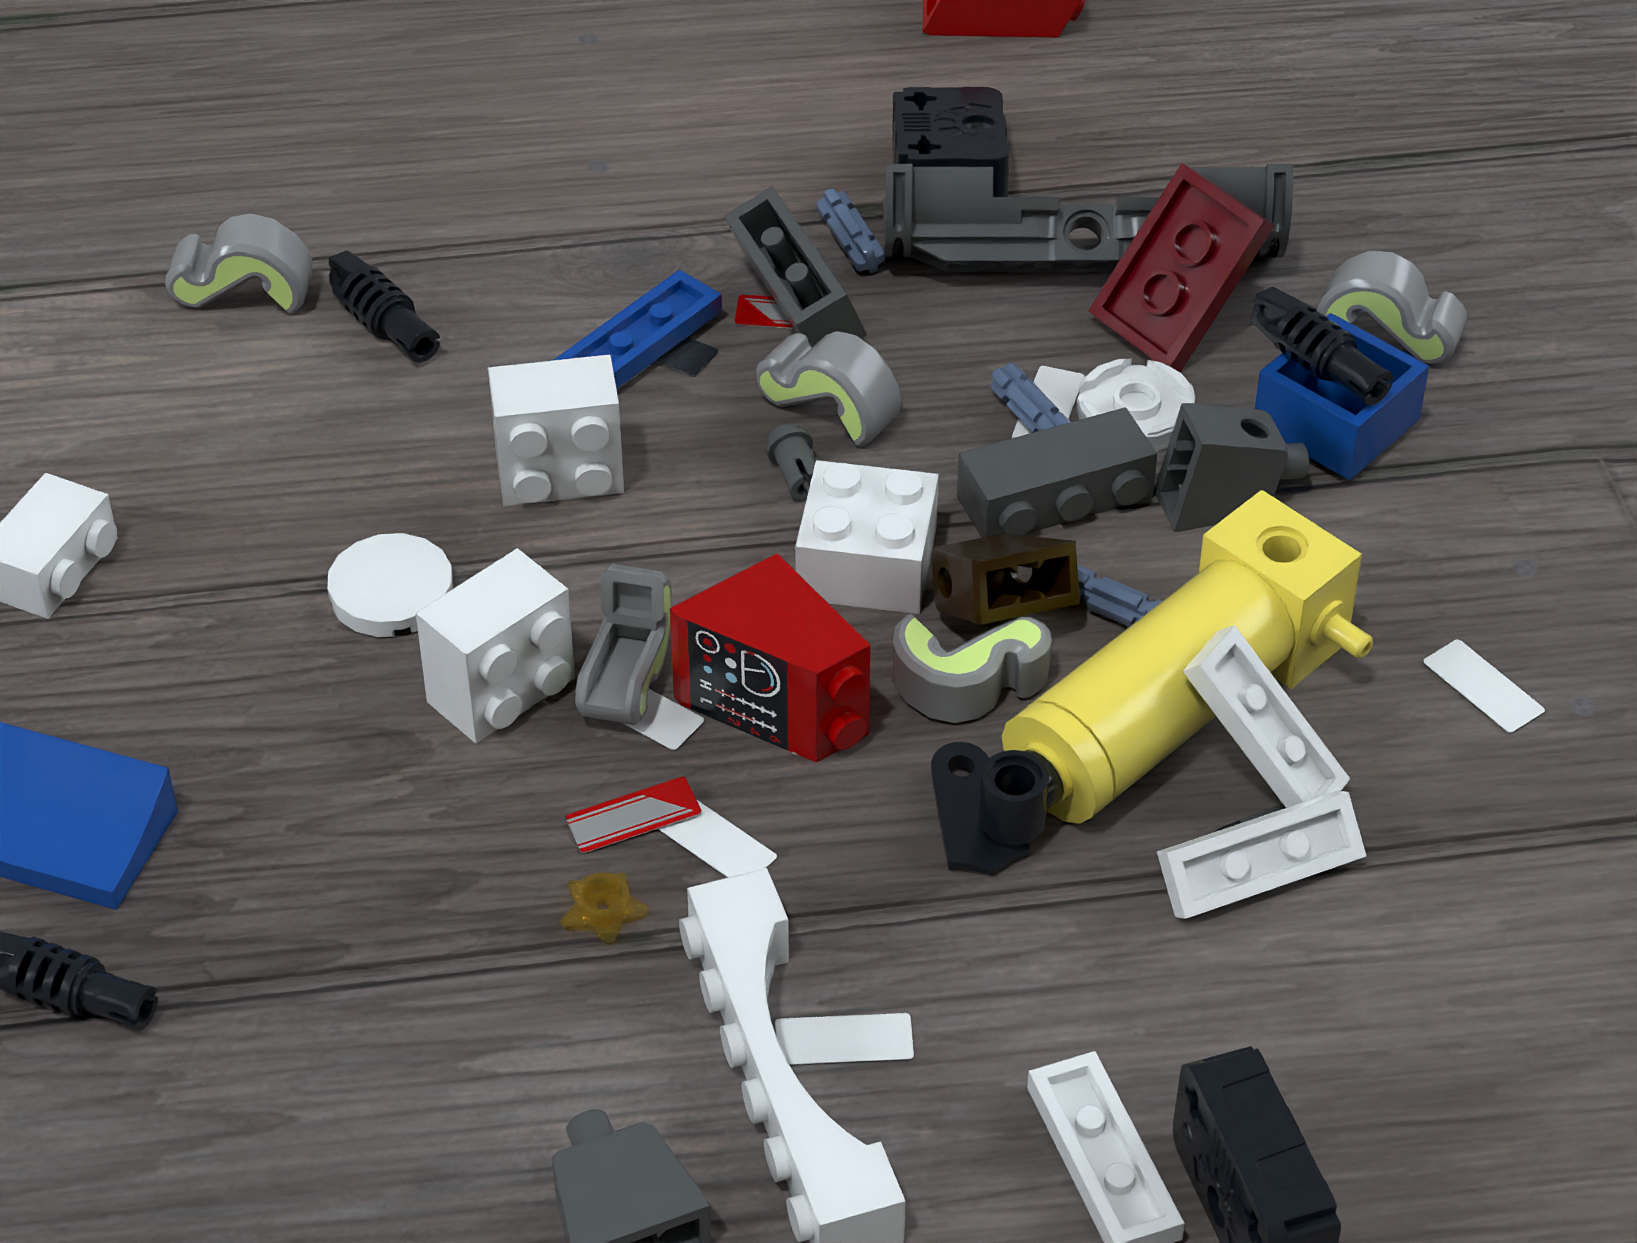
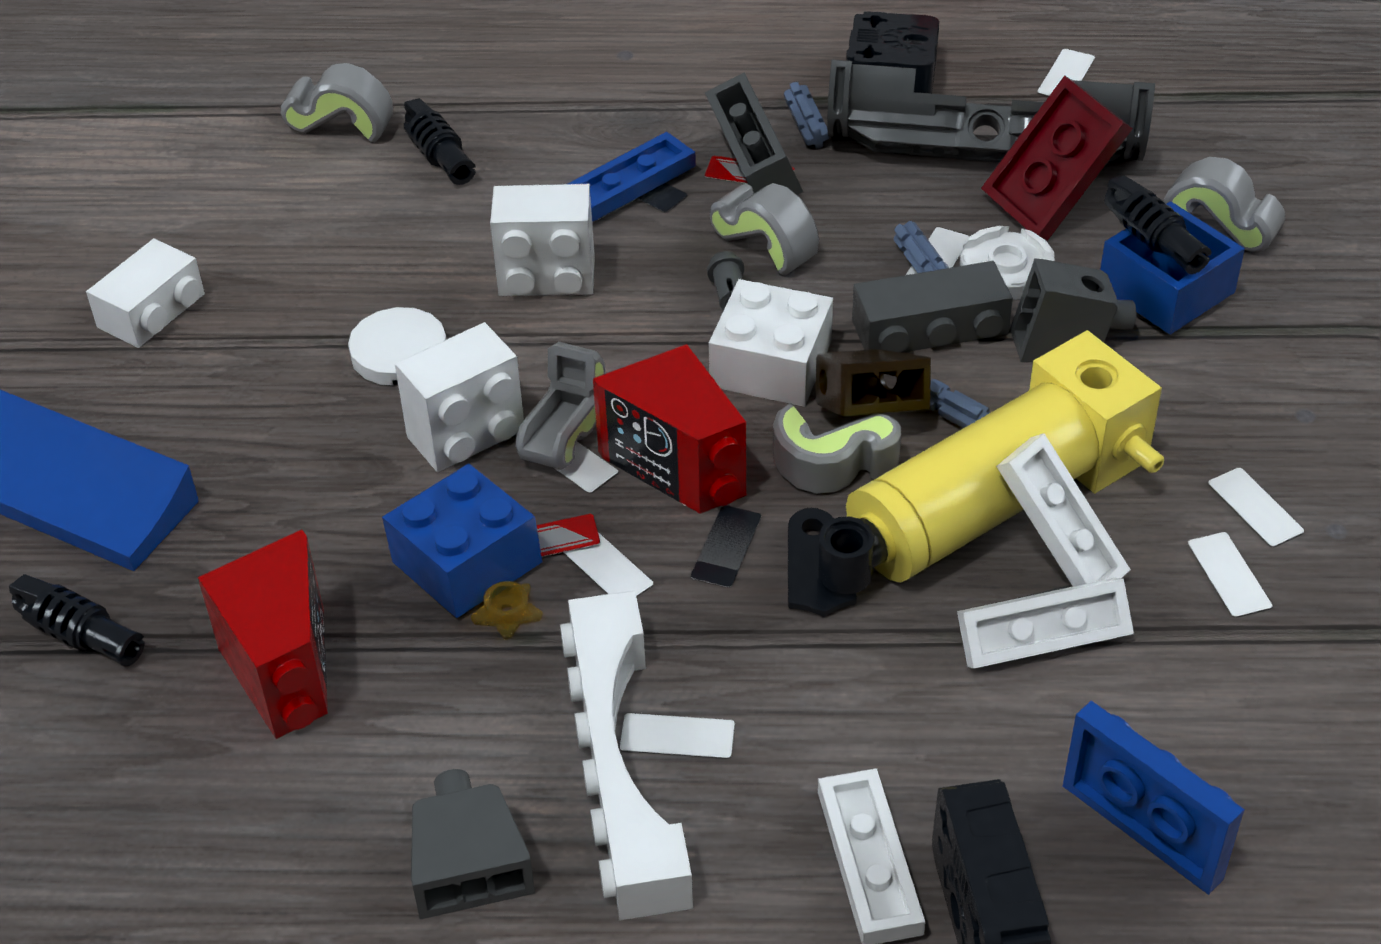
camera: 10 degrees right, 0 degrees up
(325, 968) = (273, 630): none -> red slope
(535, 826) = (462, 539): none -> blue brick
(857, 800) = (726, 546): none -> black sticker
(1166, 147) = (1069, 63): none -> white sticker
(1422, 1047) = (1152, 797): none -> blue plate
(1465, 771) = (1230, 574): none -> white sticker

